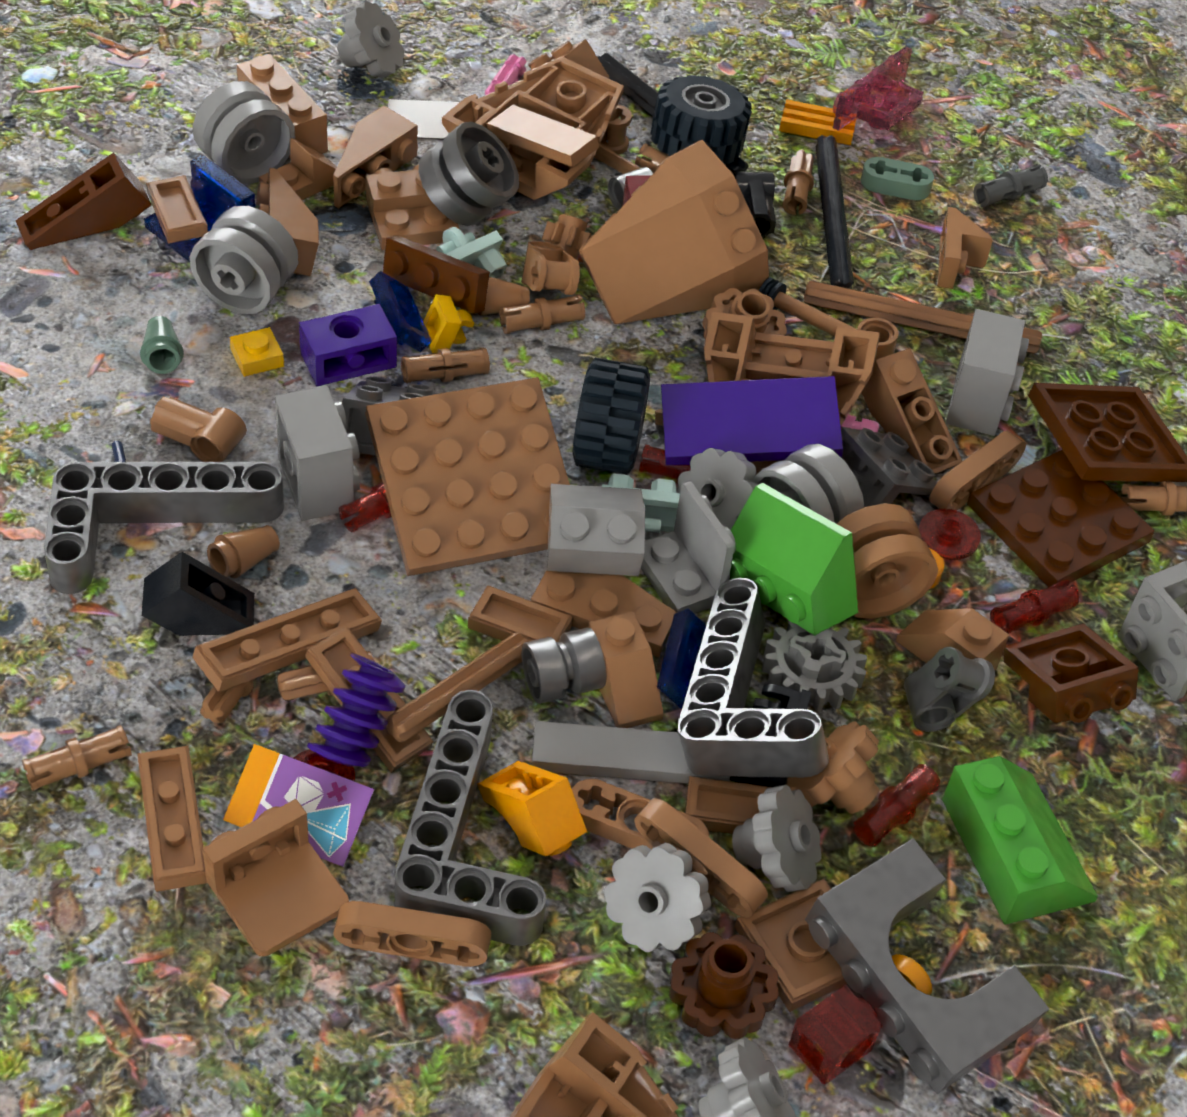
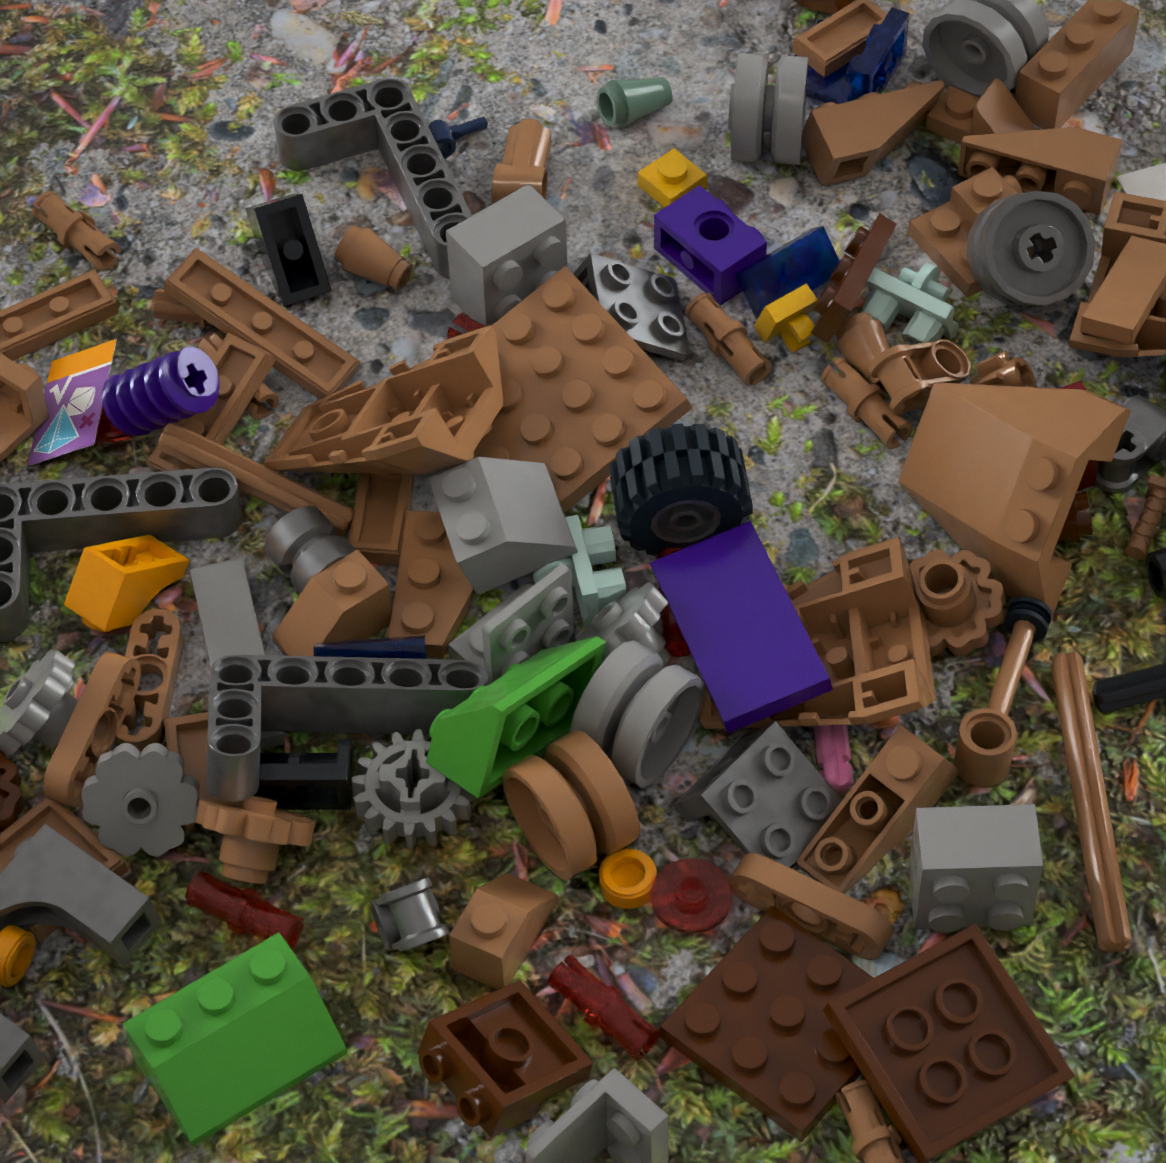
camera: 80 degrees right, 5 degrees up
(459, 563) = (405, 423): none -> medium nougat wedge

